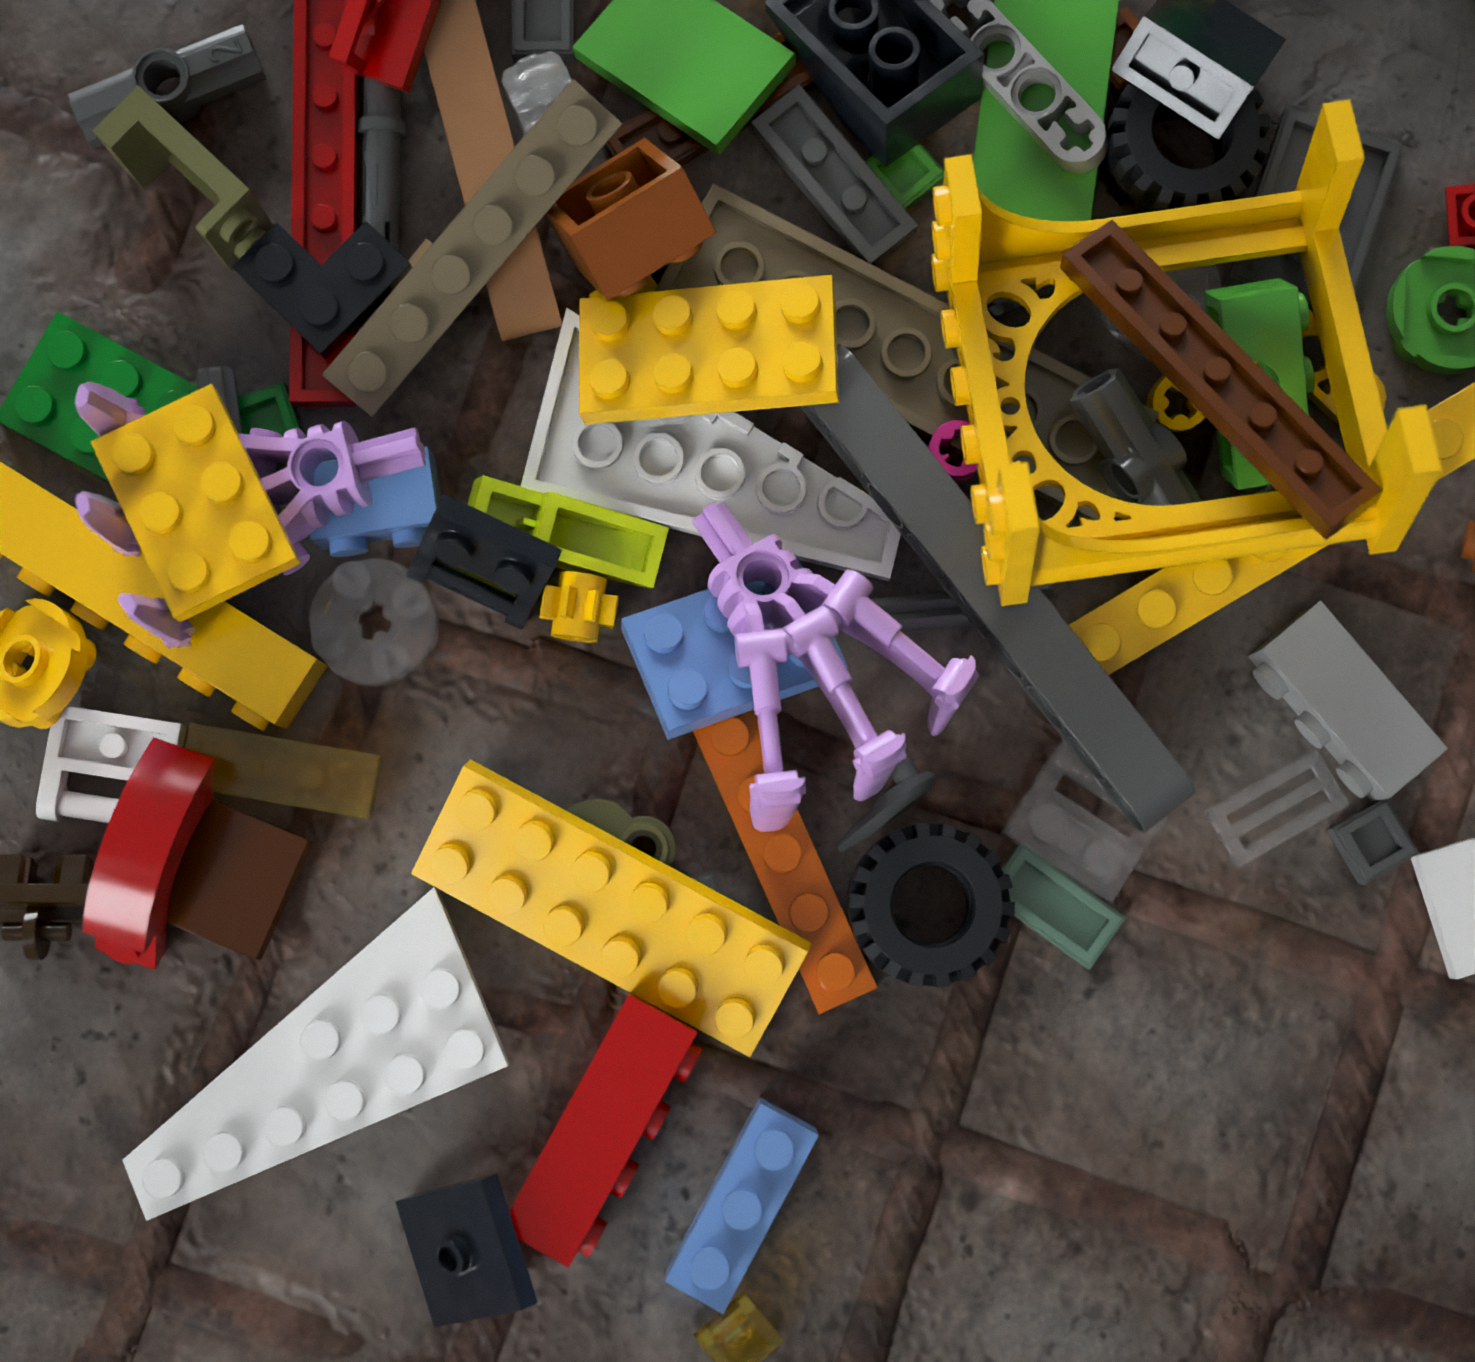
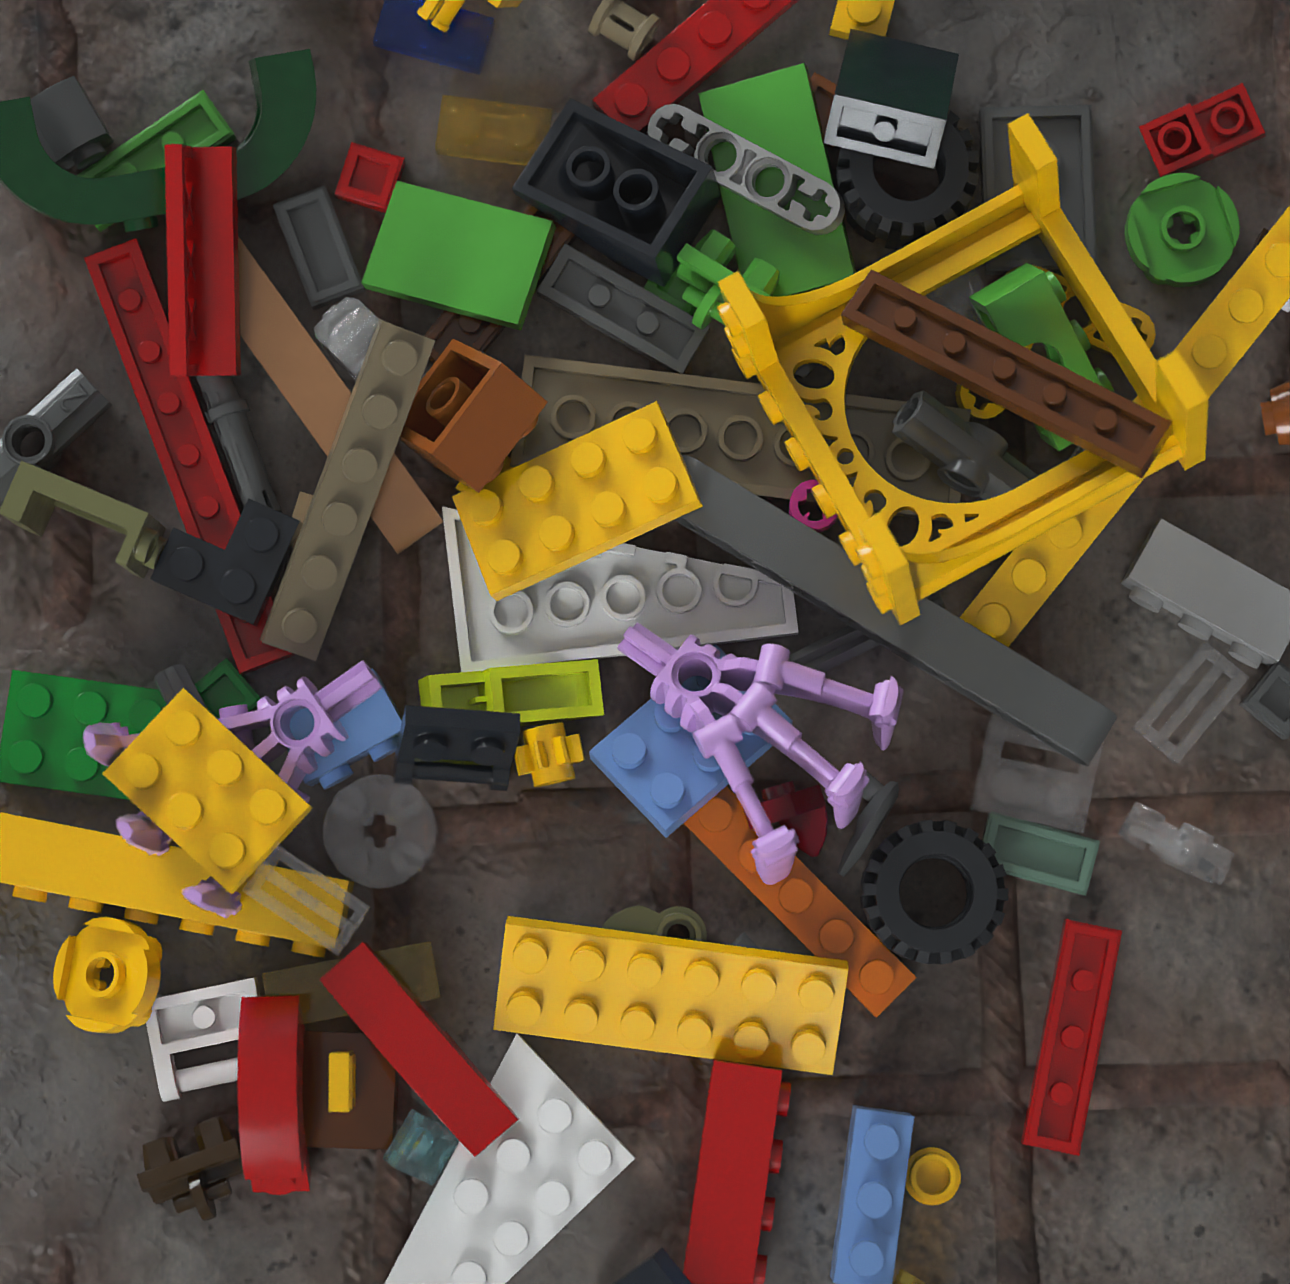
camera: 15 degrees left, 0 degrees up
(226, 866) = (342, 1081): none -> yellow tile
(231, 616) = (267, 872): none -> clear tile
(288, 969) = (421, 1147): none -> clear light blue plate
(322, 864) = (419, 1049): none -> red slope
(815, 1204) = (932, 1176): none -> yellow plate
(821, 763) = (798, 810): none -> dark red plate
(927, 171) = (706, 266): none -> bright green hips
(1017, 1113) = (1071, 1037): none -> red tile
(1215, 961) = (1183, 848): none -> clear plate

